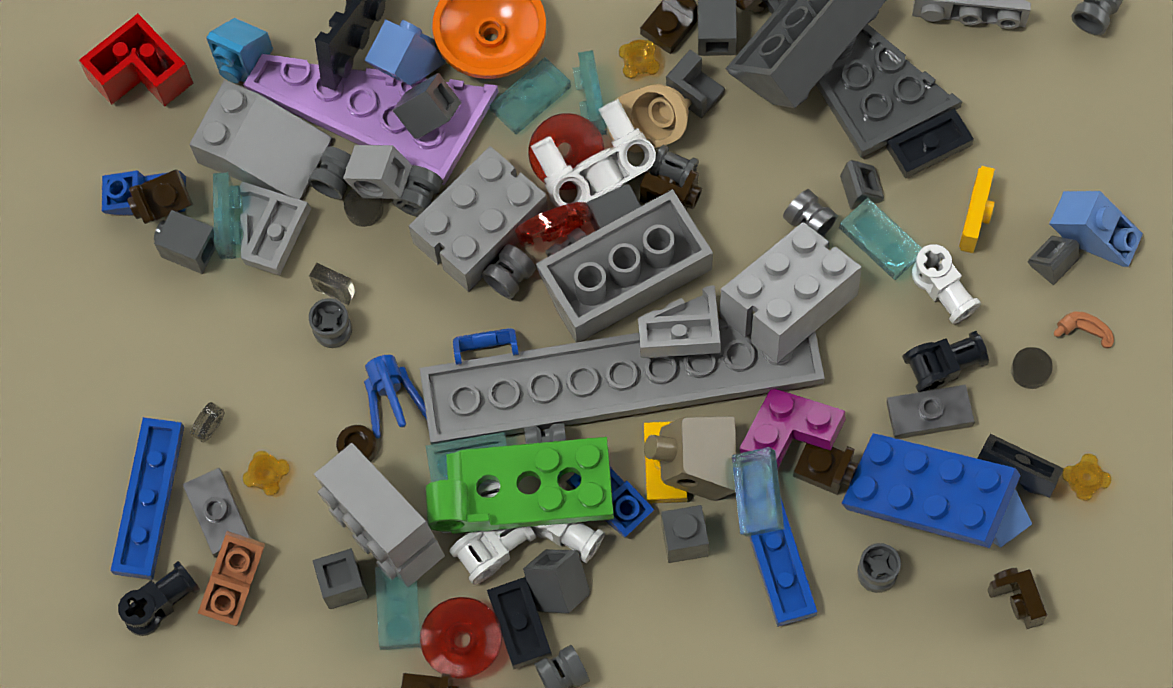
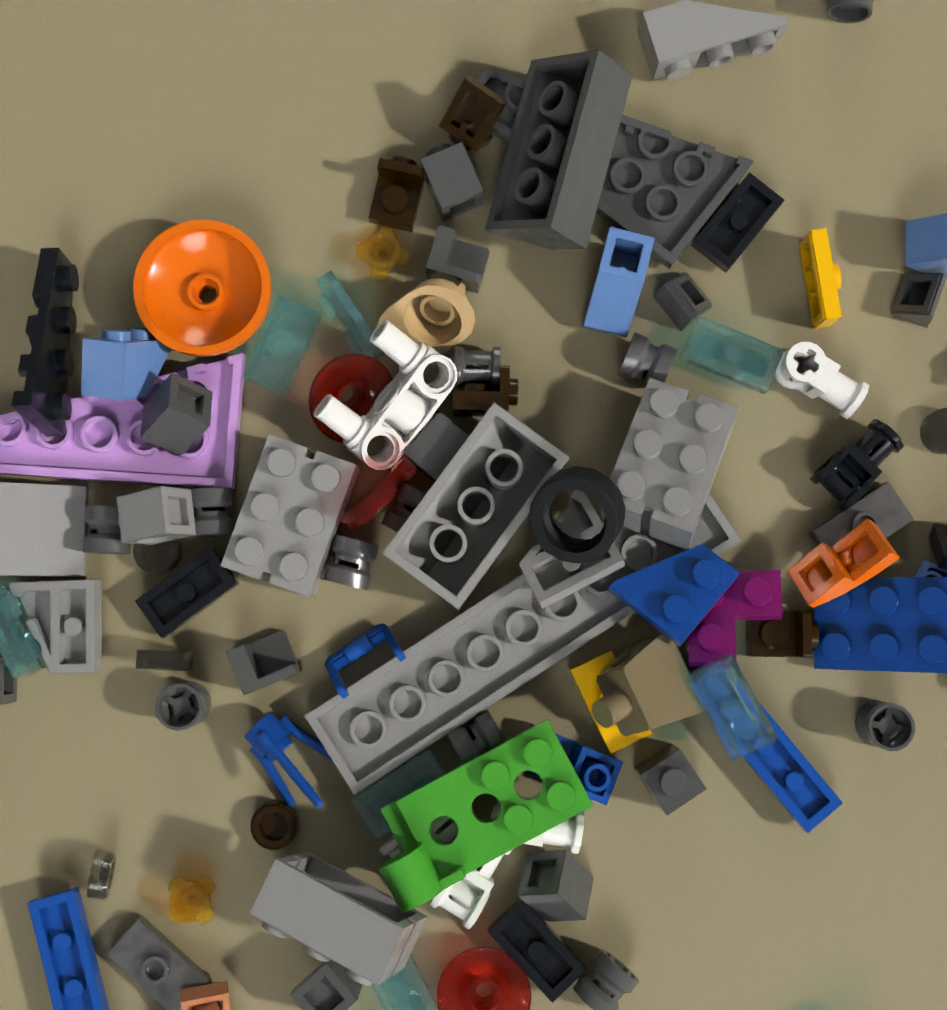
camera: 30 degrees left, 15 degrees up
(372, 243) = (186, 592): none -> black plate
(406, 319) = (263, 662): none -> dark grey panel
(670, 281) = (557, 542): none -> black tyre
(754, 389) = (677, 590): none -> blue wing
(813, 146) = (618, 281): none -> medium blue slope
(887, 428) = (844, 566): none -> orange slope

